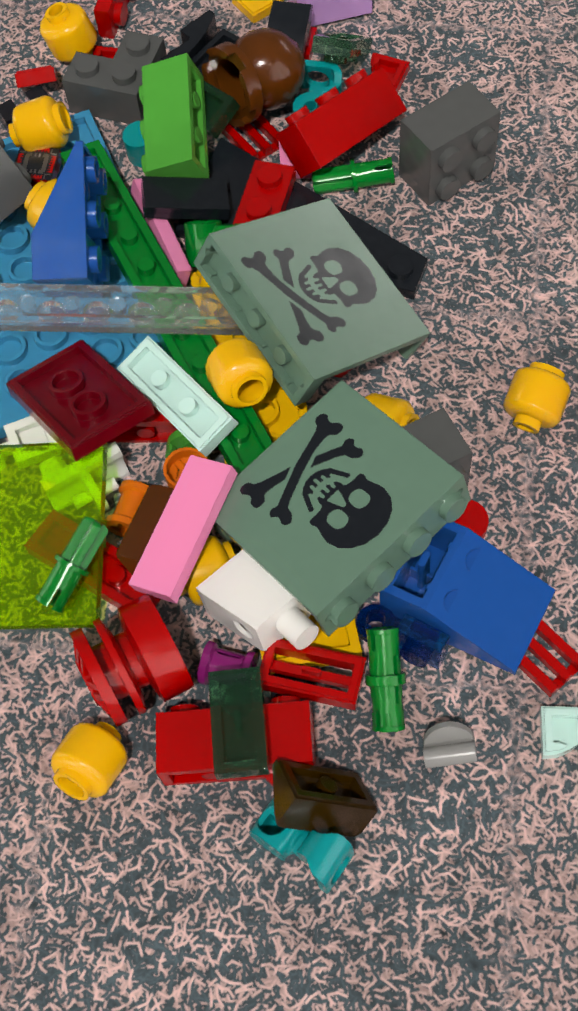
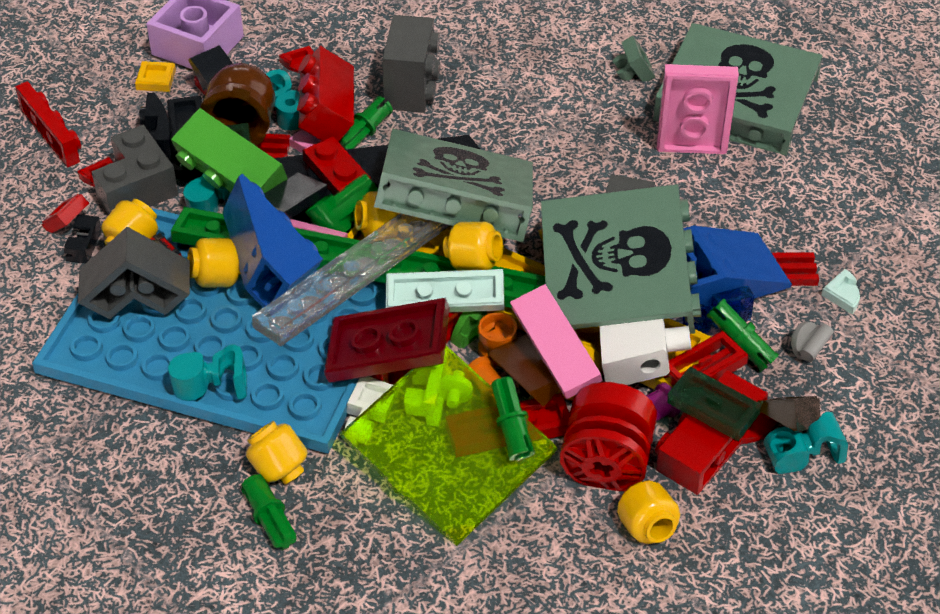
camera: 55 degrees left, 15 degrees down
(67, 30) = (56, 171): yellow head -> none
(341, 47) = (266, 59): clear green plate -> none
(537, 397) = (626, 153): yellow head -> none

